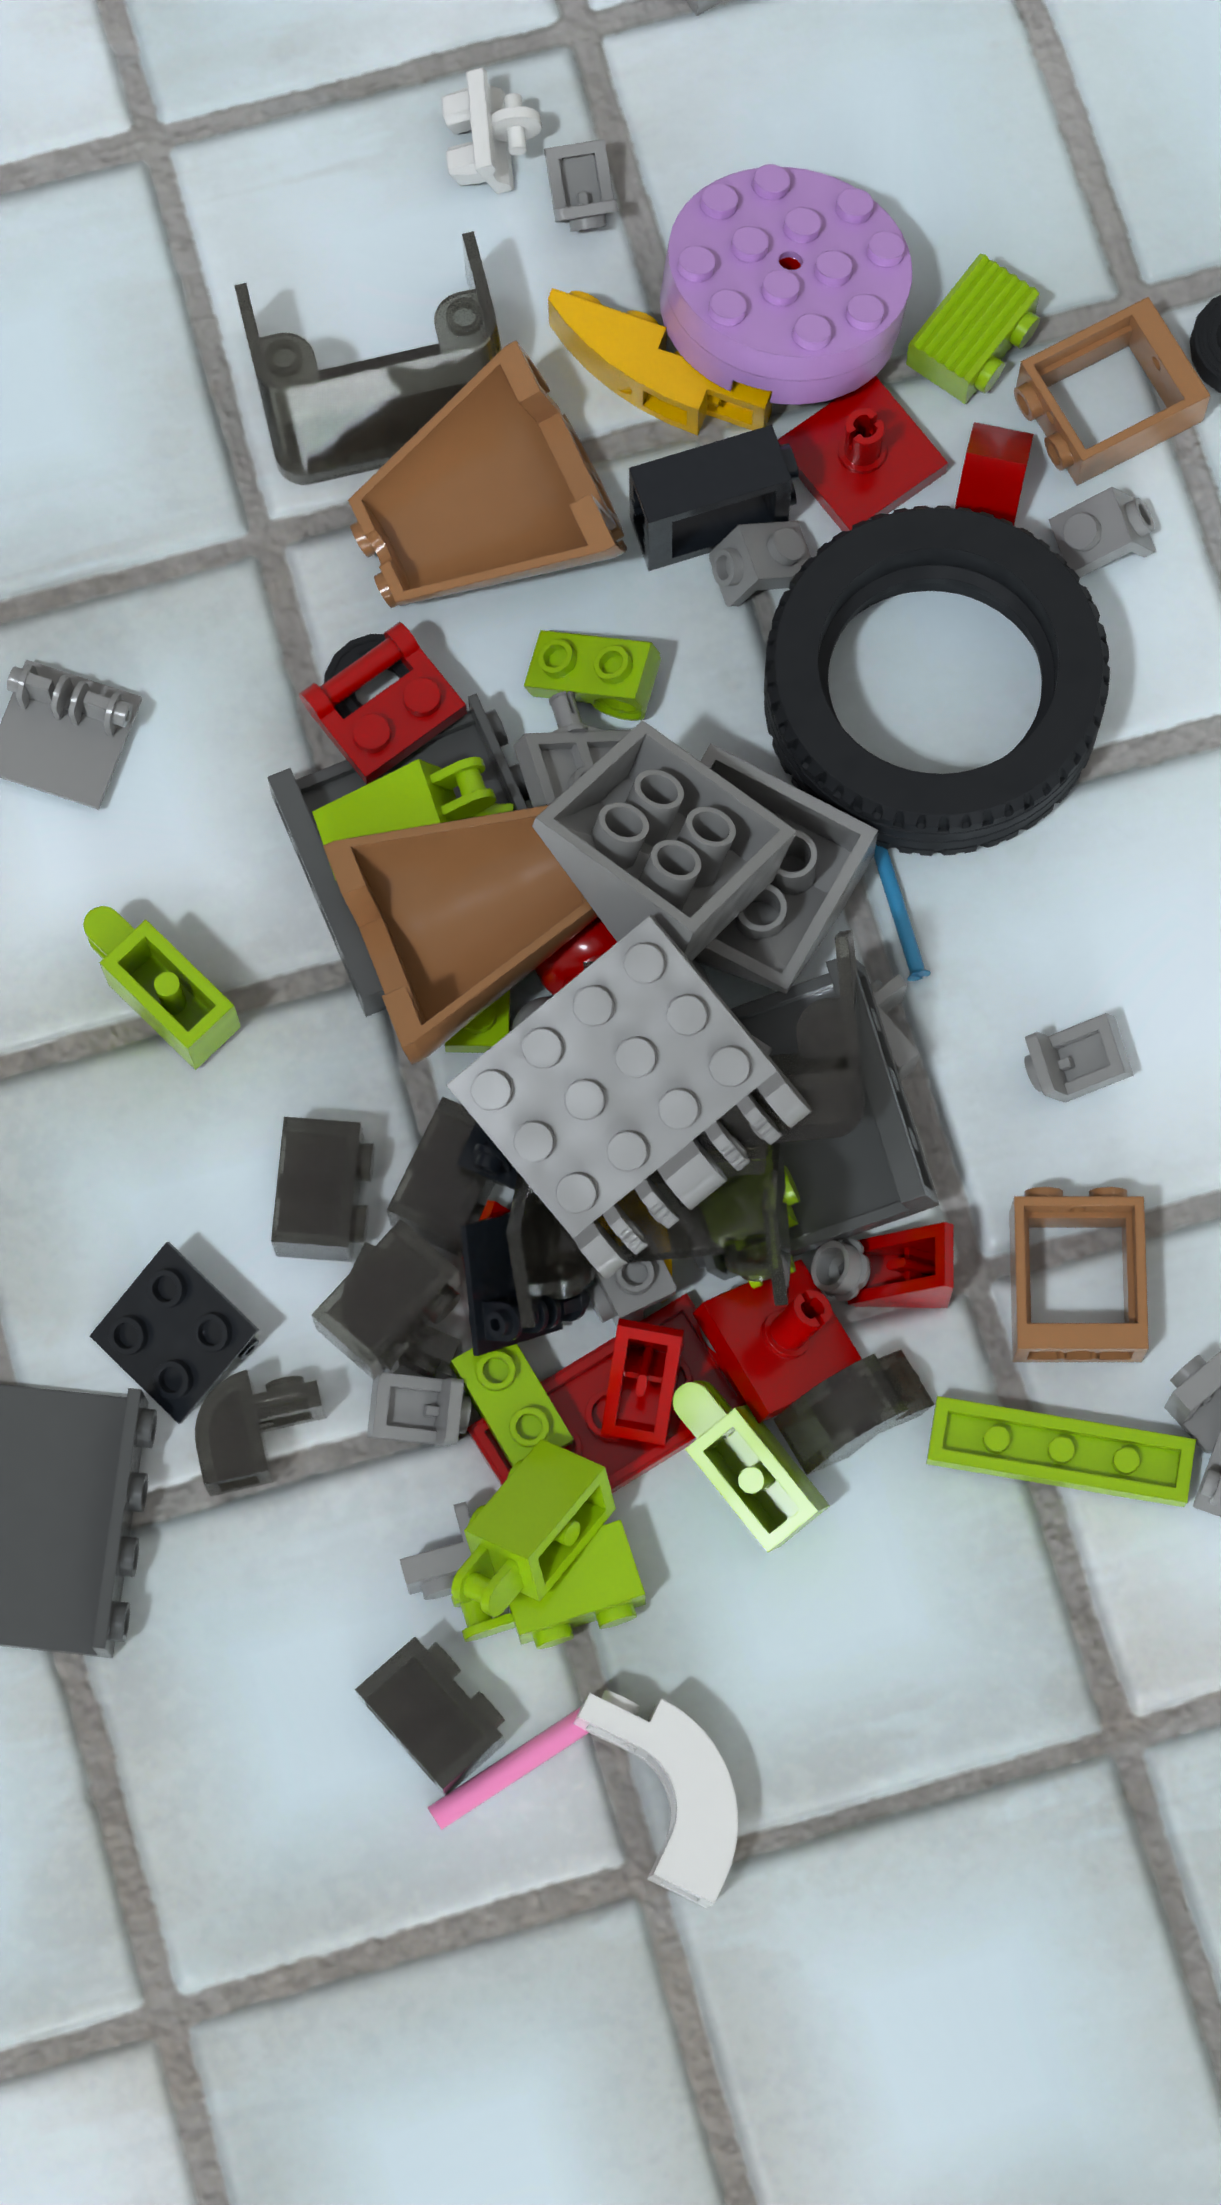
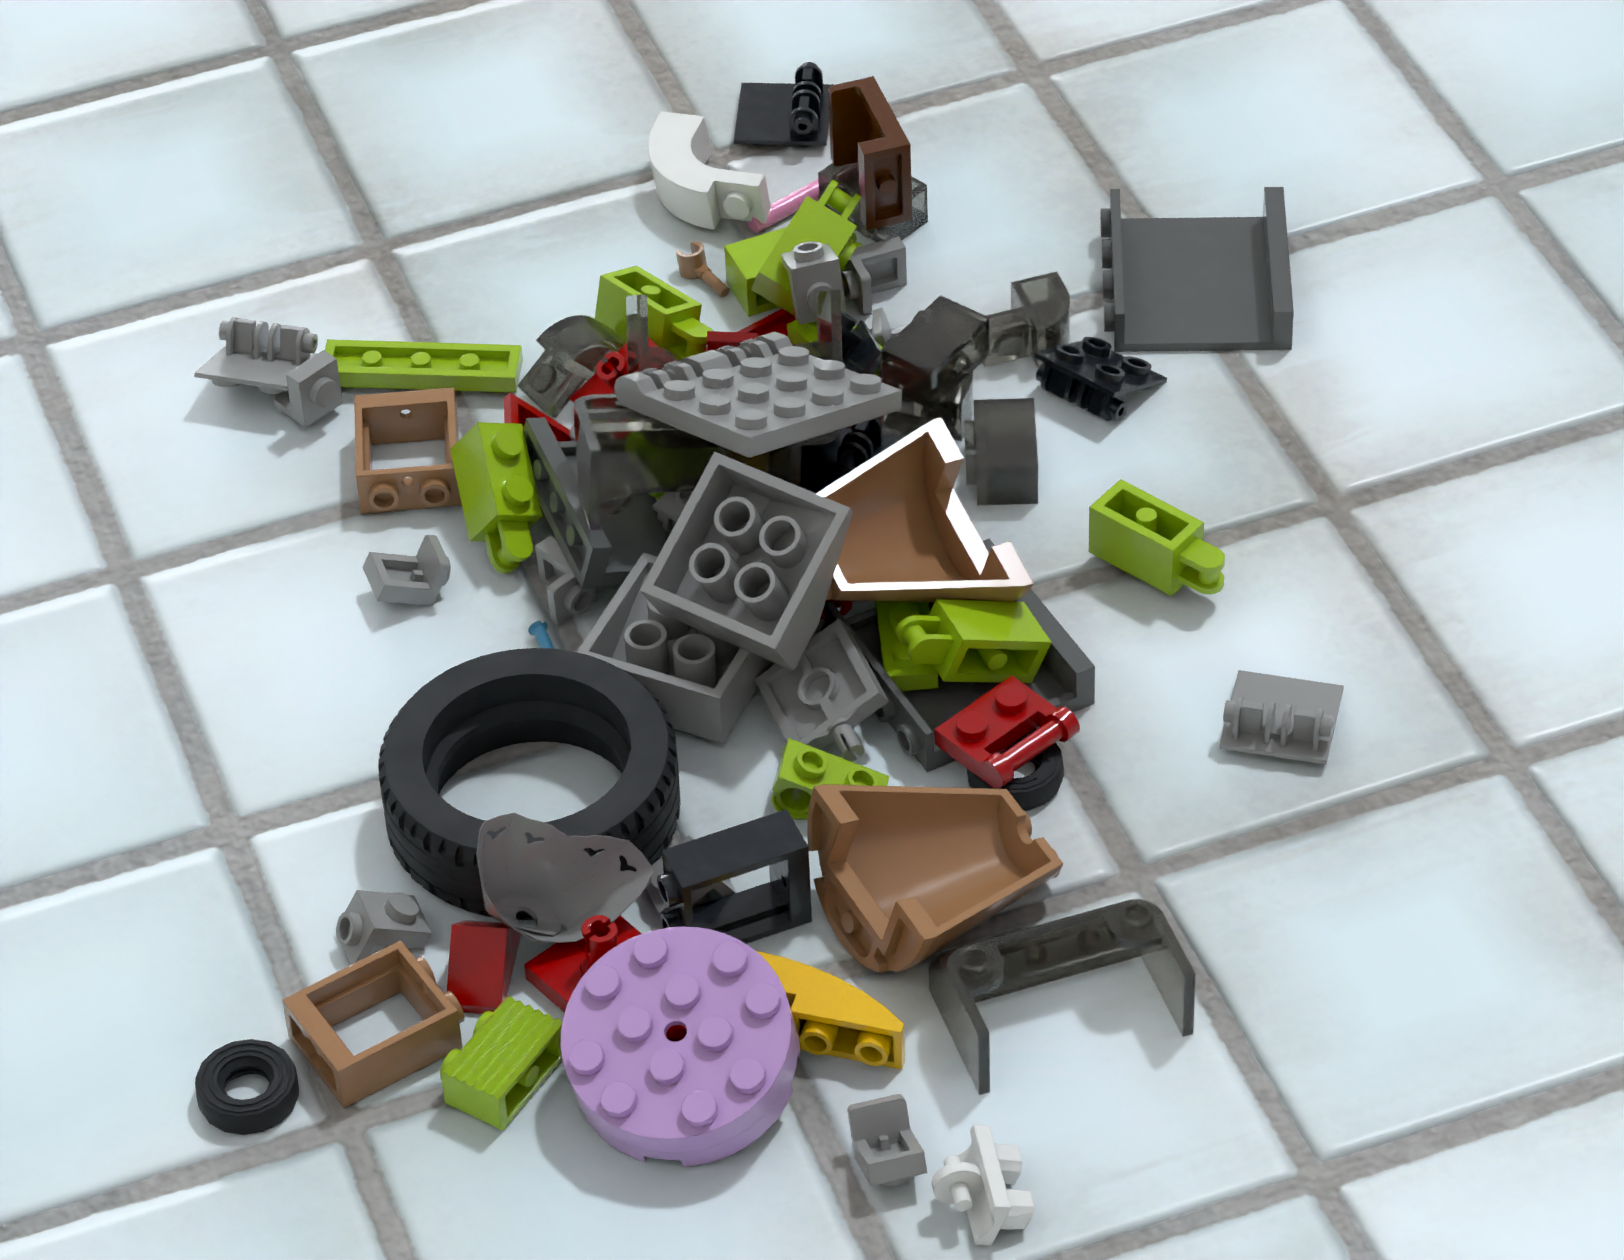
camera: 175 degrees right, 30 degrees down
(404, 1616) = (869, 133): none -> reddish brown panel
(533, 1445) = (812, 269): none -> light grey bracket
(536, 1945) = (785, 111): none -> black hinge
(674, 1611) = (695, 266): none -> medium nougat hand
(949, 479) = (555, 877): none -> light grey piece
(964, 1152) = (497, 491): none -> lime brick

